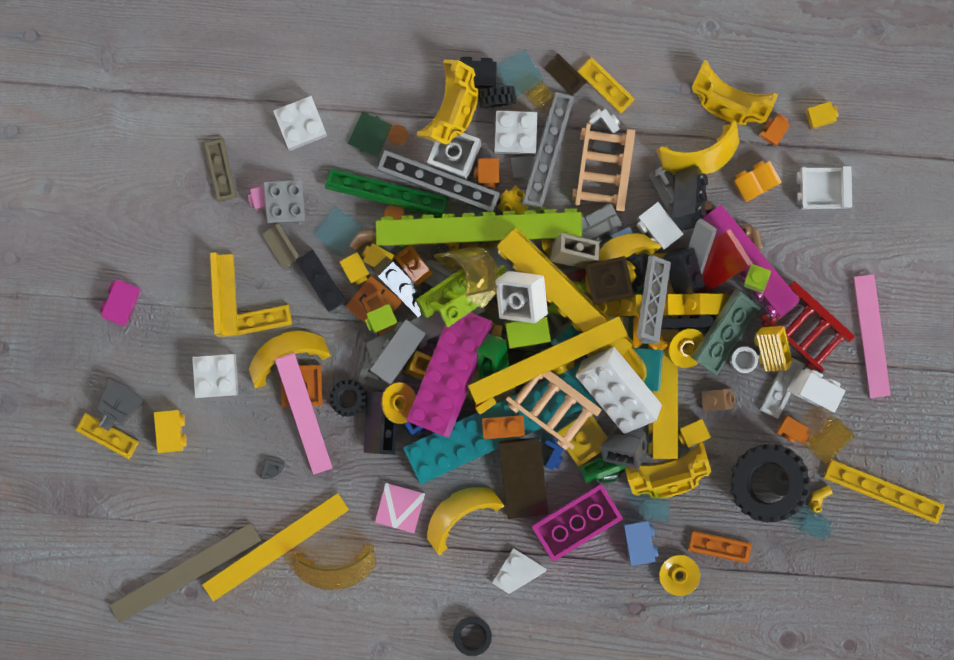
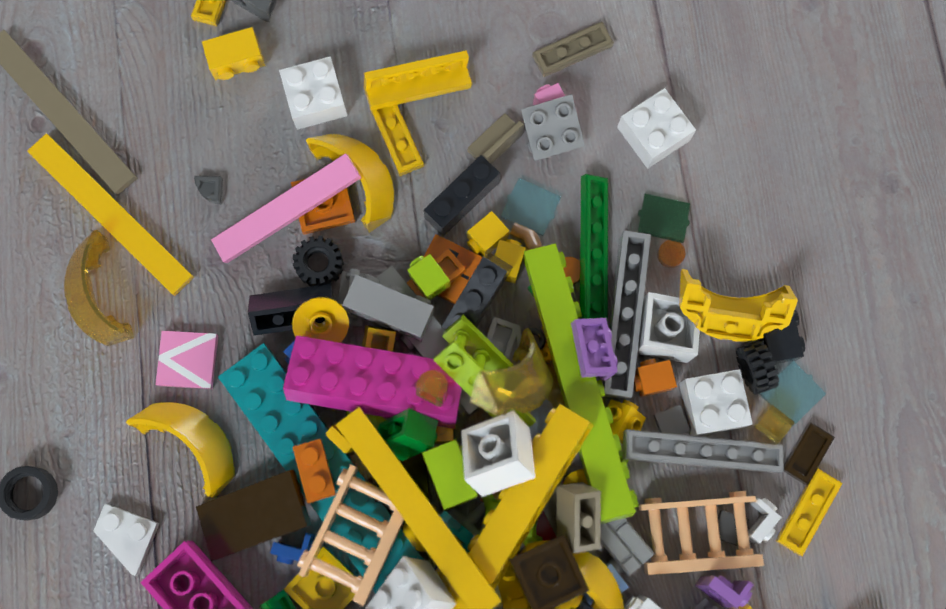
camera: 80 degrees right, 10 degrees down
(413, 264) = (508, 307): orange plate -> none
(460, 212) = (594, 348): none -> medium lavender bracket
(467, 331) = (432, 387): none -> clear yellow brick
(644, 164) = (724, 592): none -> medium lavender bracket

